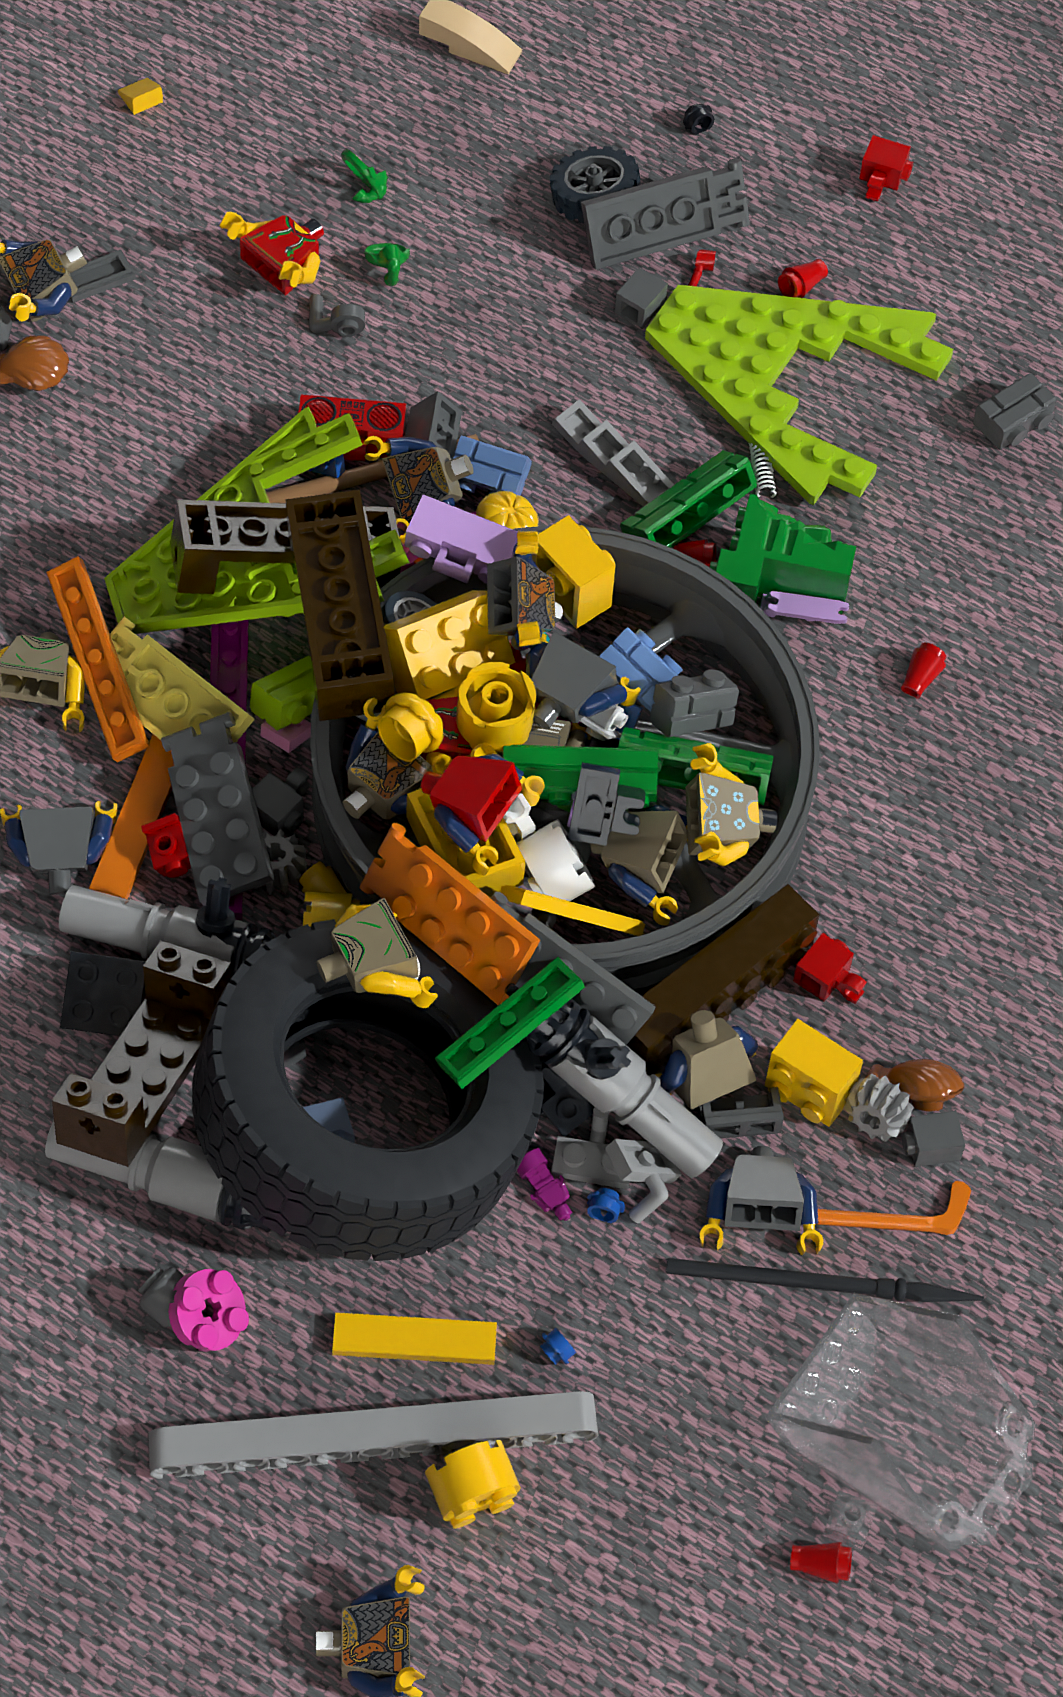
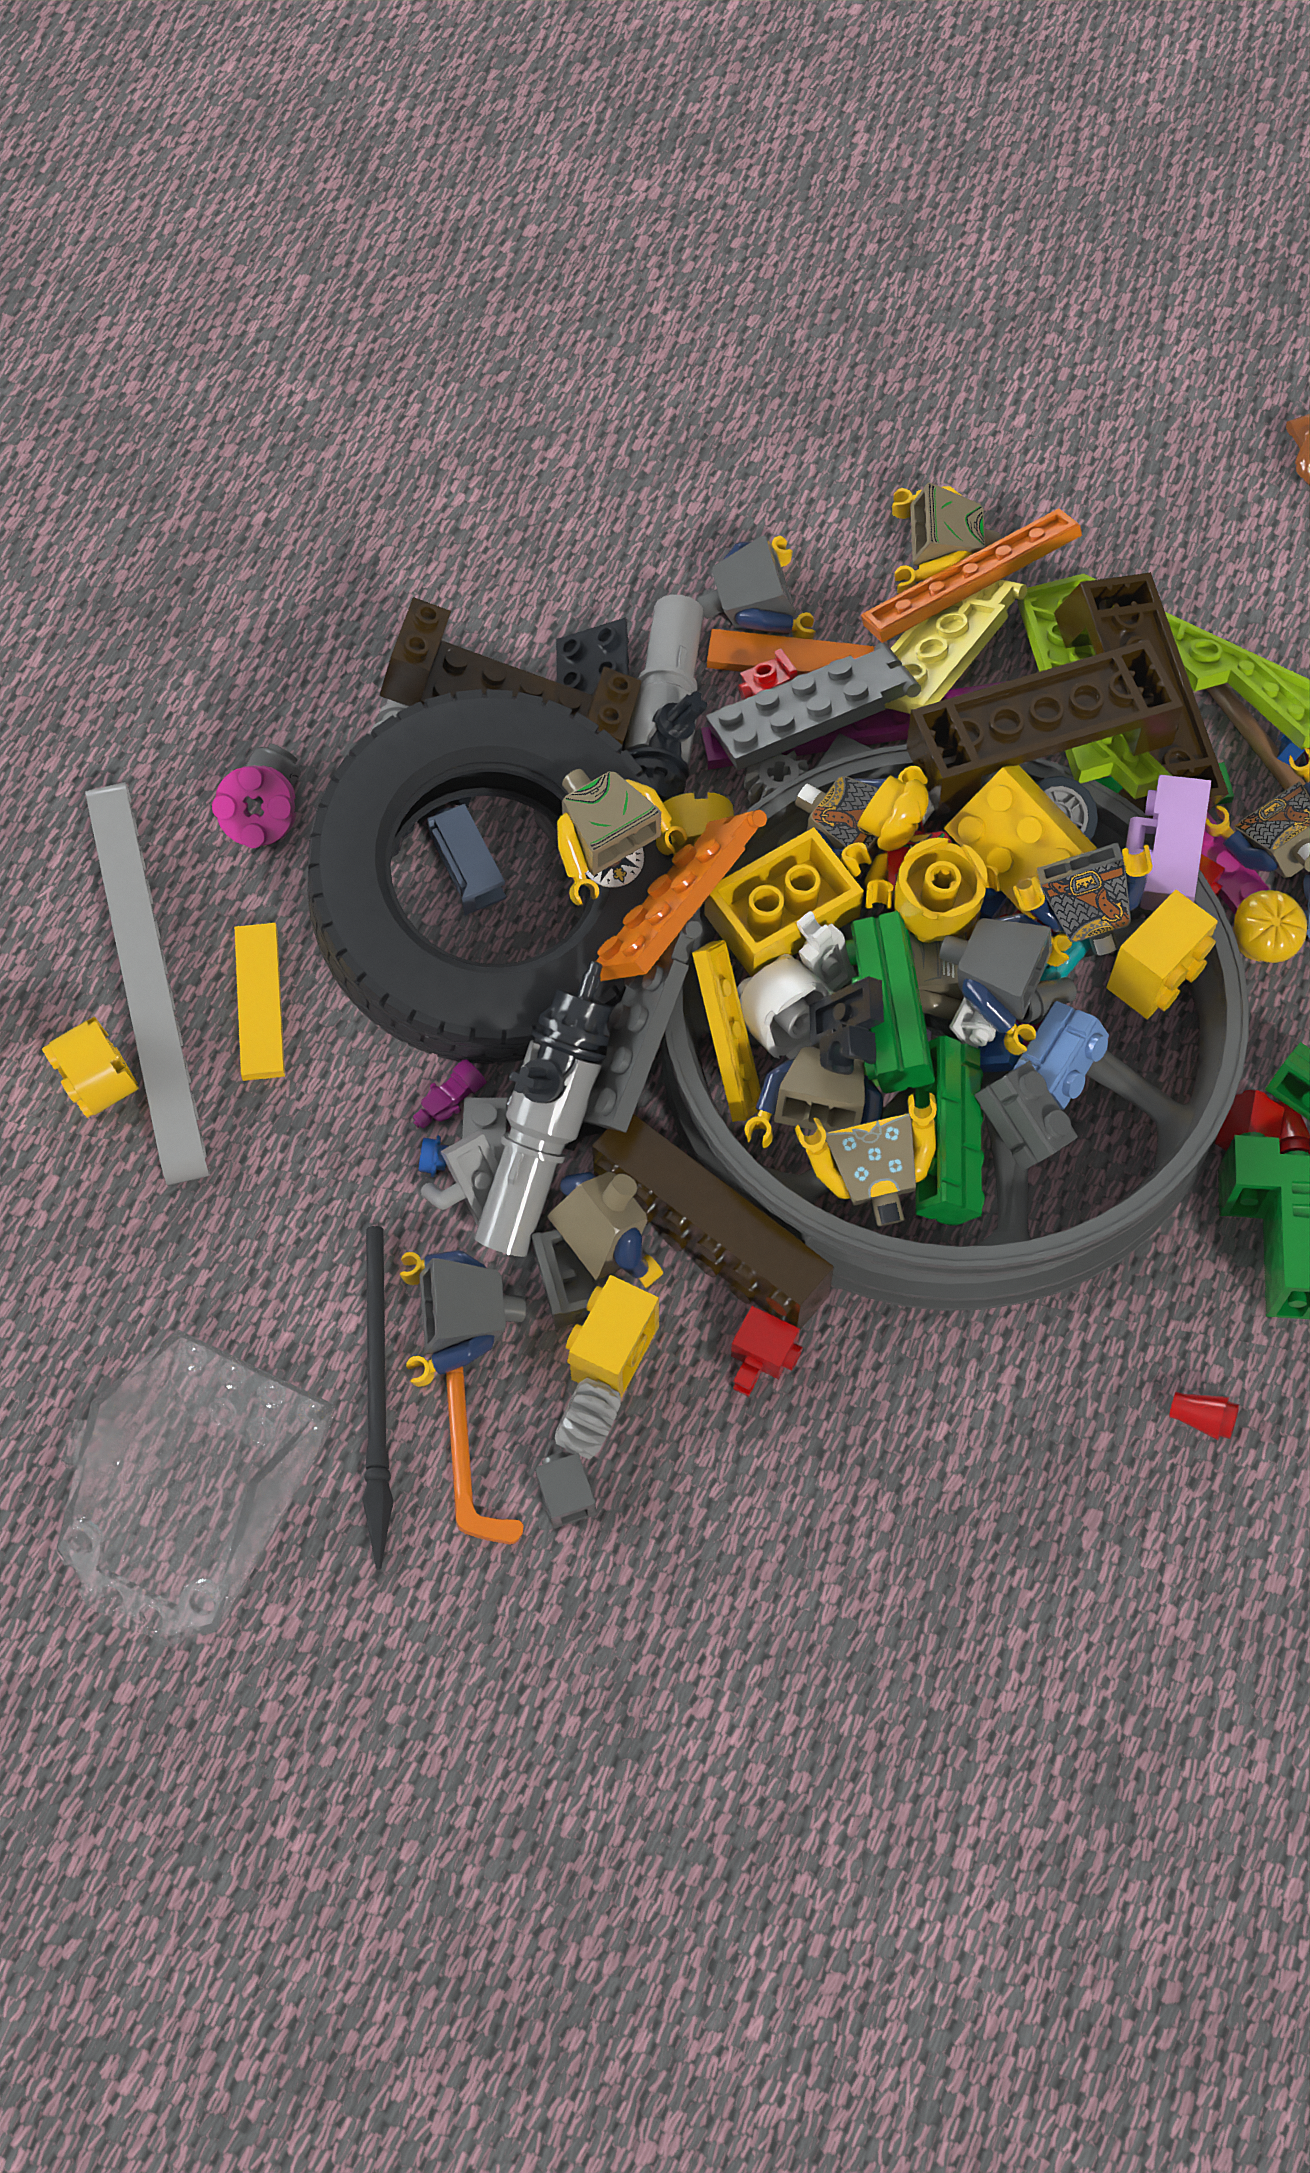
camera: 85 degrees right, 5 degrees up
(475, 797) = (808, 878): red torso -> none
(509, 1022) = (551, 969): green tile -> none
(557, 1347) = (261, 1128): blue plate -> none
(803, 607) = (1253, 1266): lavender piece -> none
(823, 1561) = (45, 1429): red cone -> none
(925, 1081) = (632, 1463): dark orange animal -> none

